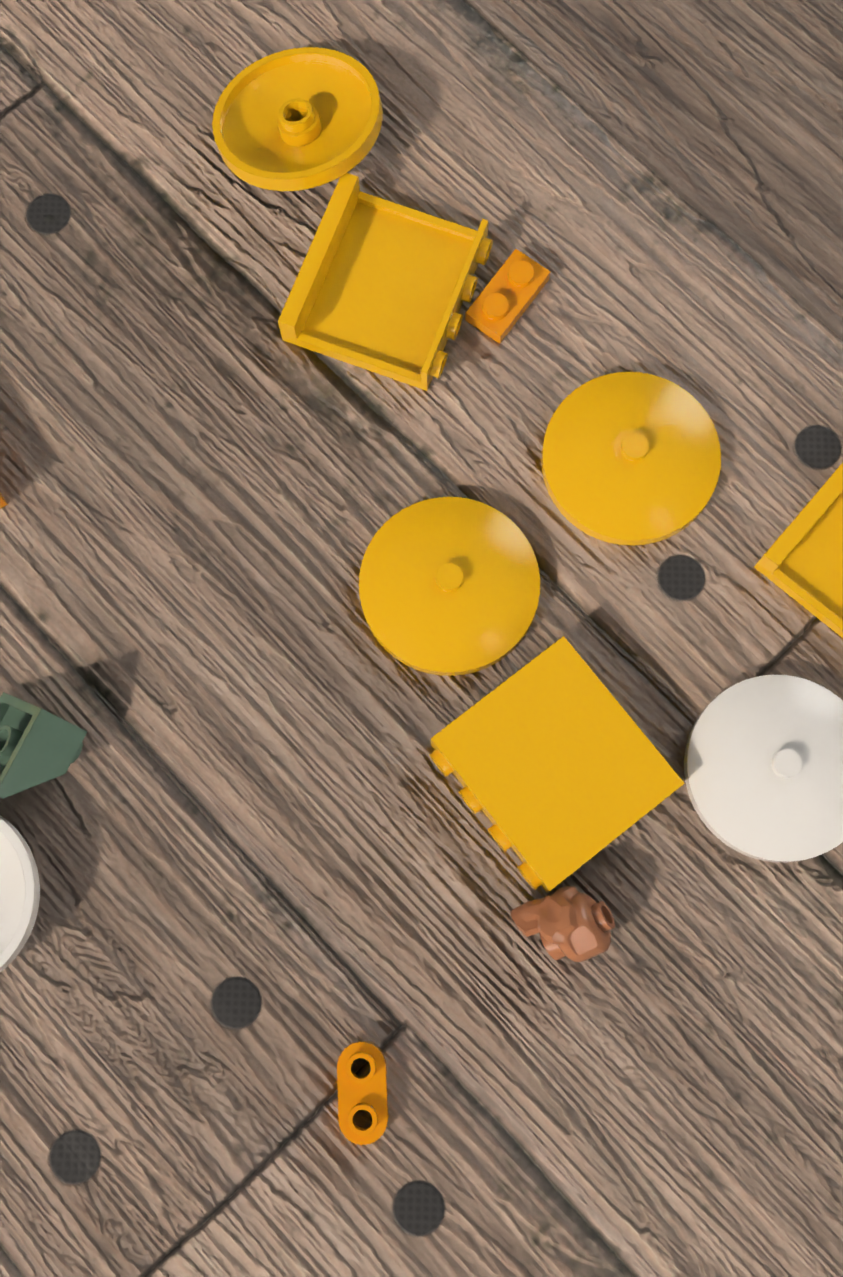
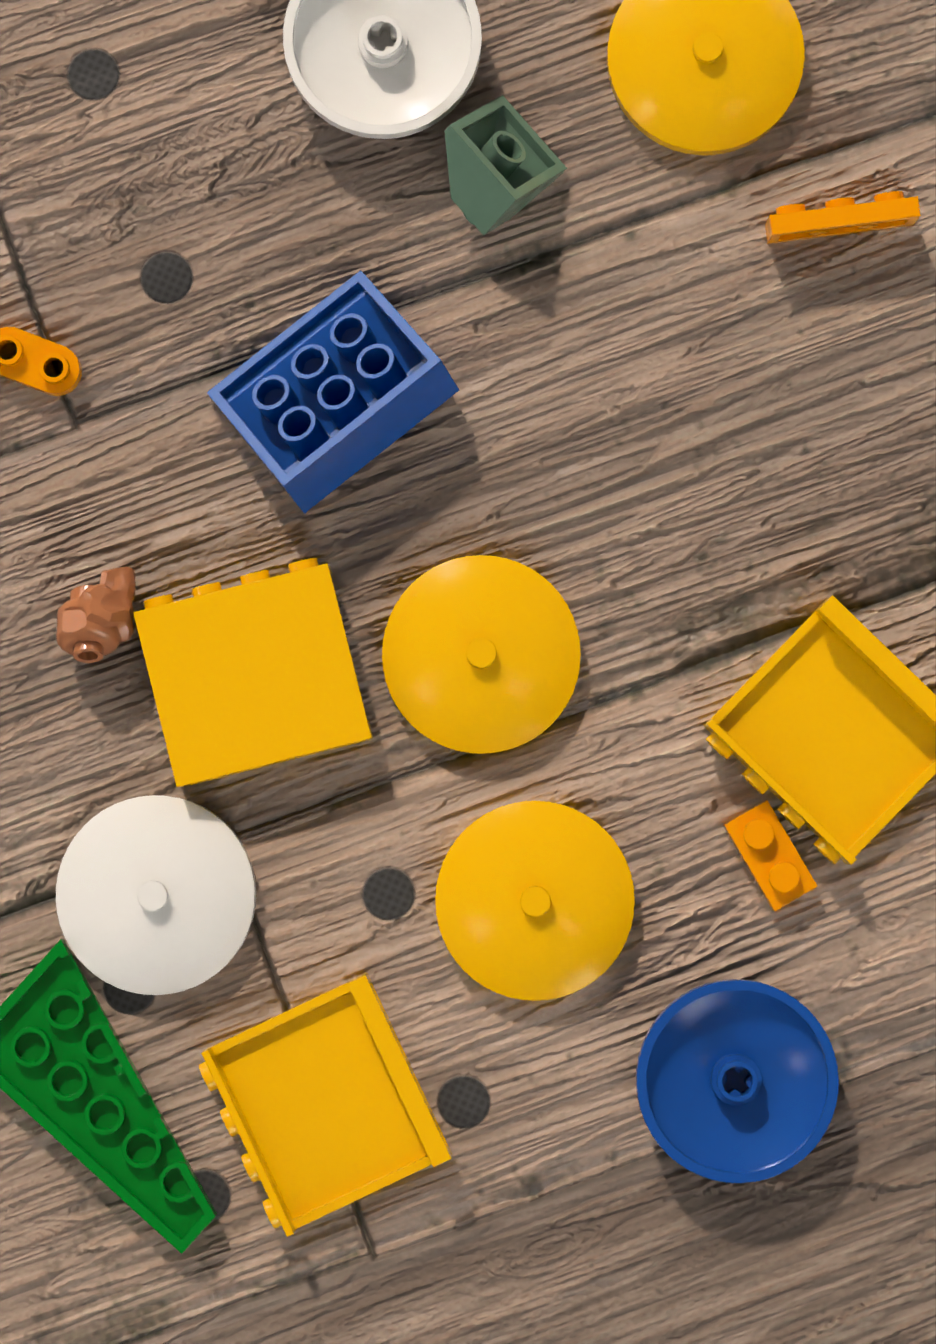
camera: 115 degrees right, 10 degrees up
(276, 805) = (333, 391): none -> blue slope
(699, 238) = (737, 1081): none -> blue dish

